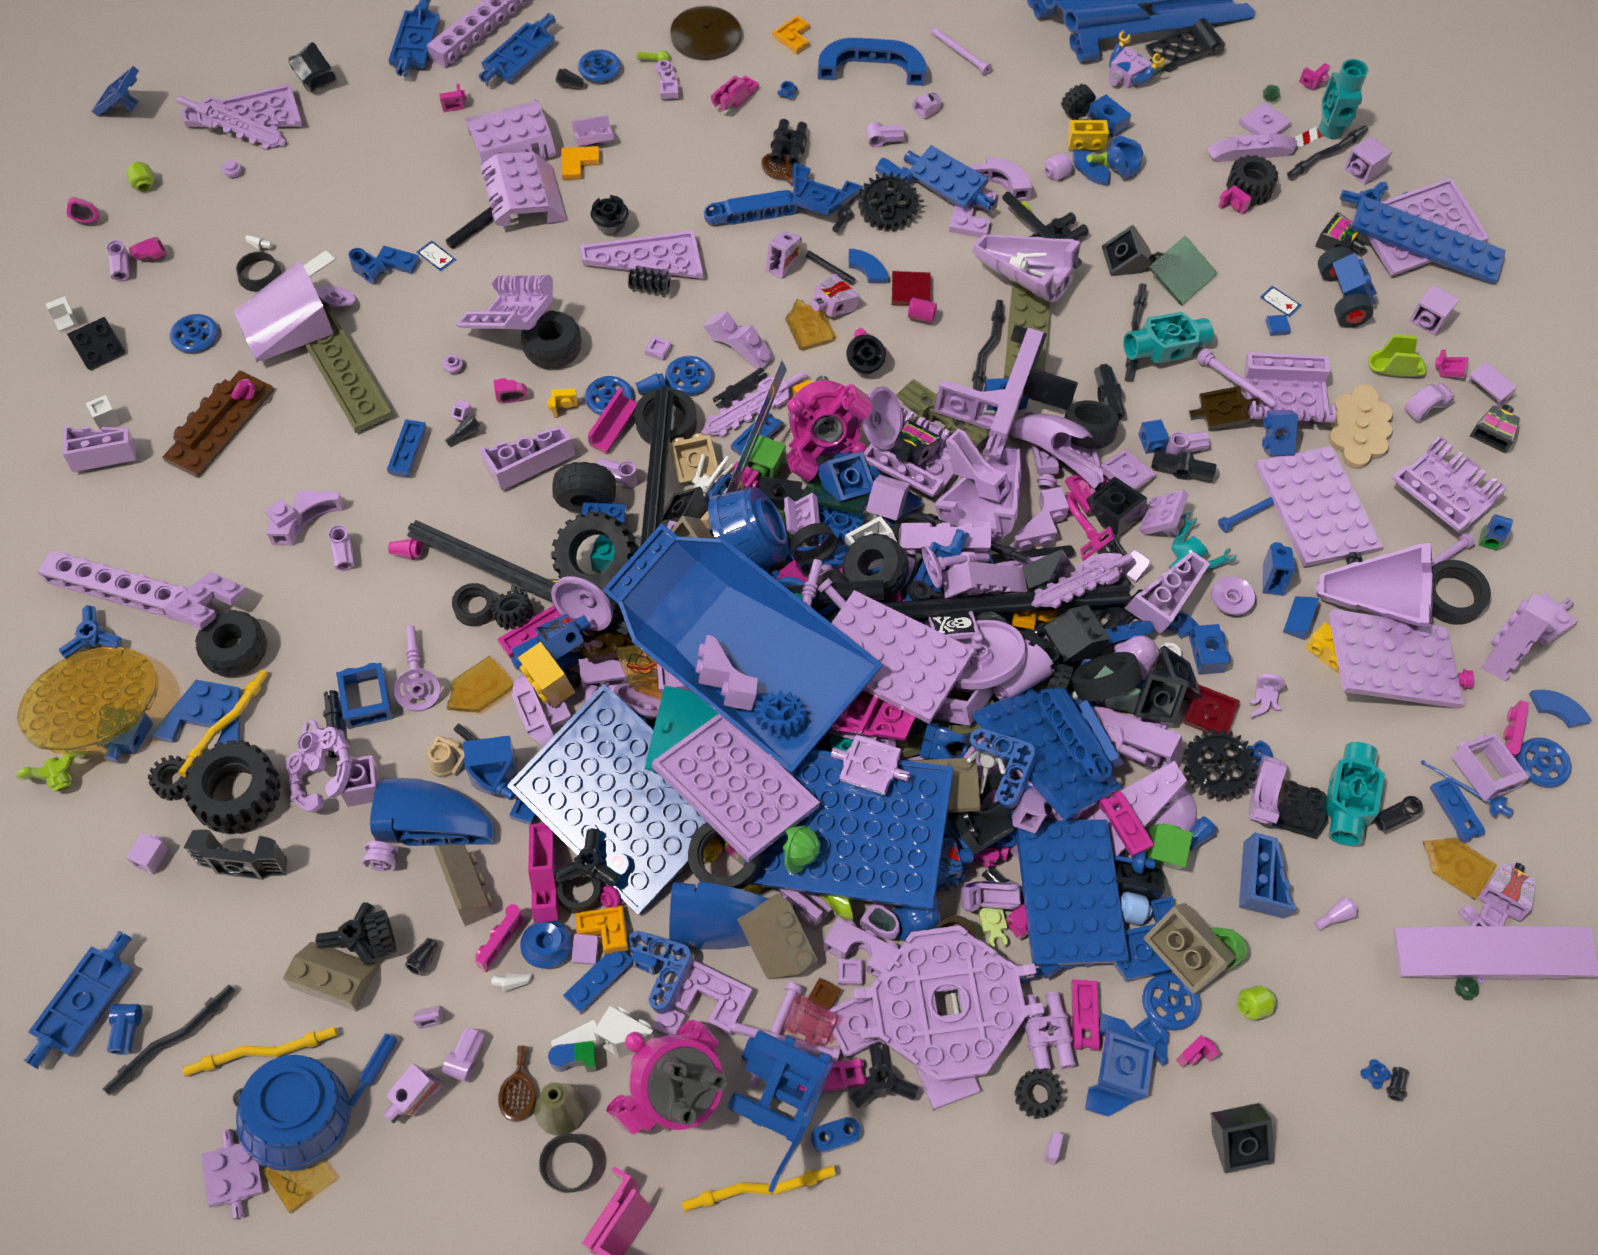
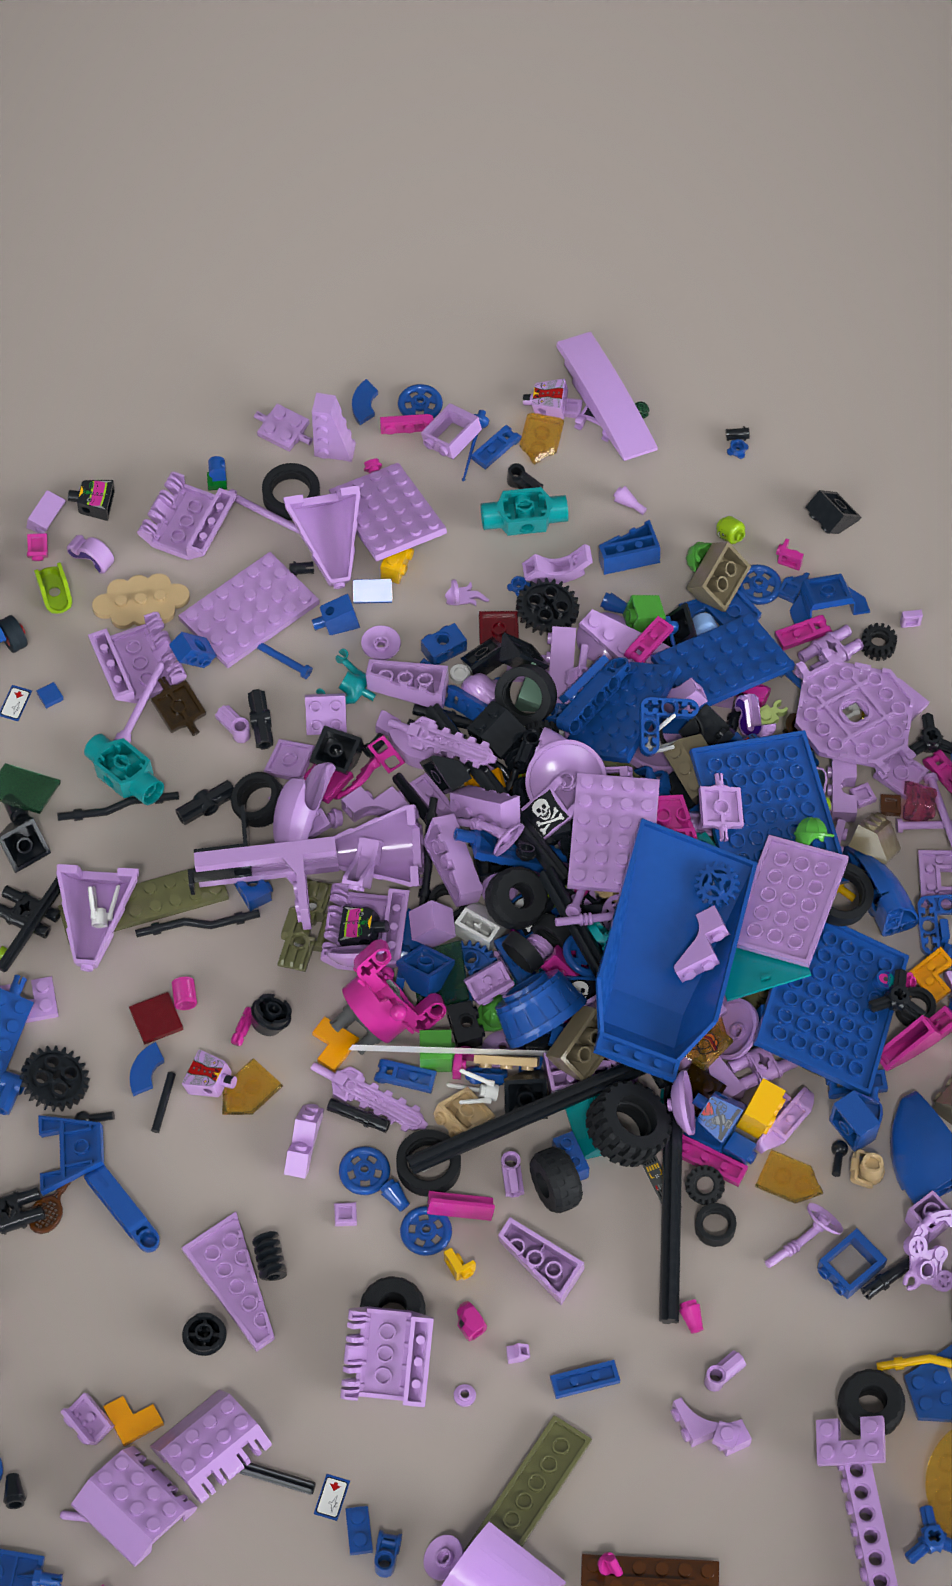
camera: 115 degrees left, 0 degrees up
(466, 428) = (533, 1336): black cone -> none
(783, 253) = (173, 1144): lavender torso -> none
(1153, 436) = (240, 751): blue brick -> none
(1300, 809) = (552, 541): black bracket -> none

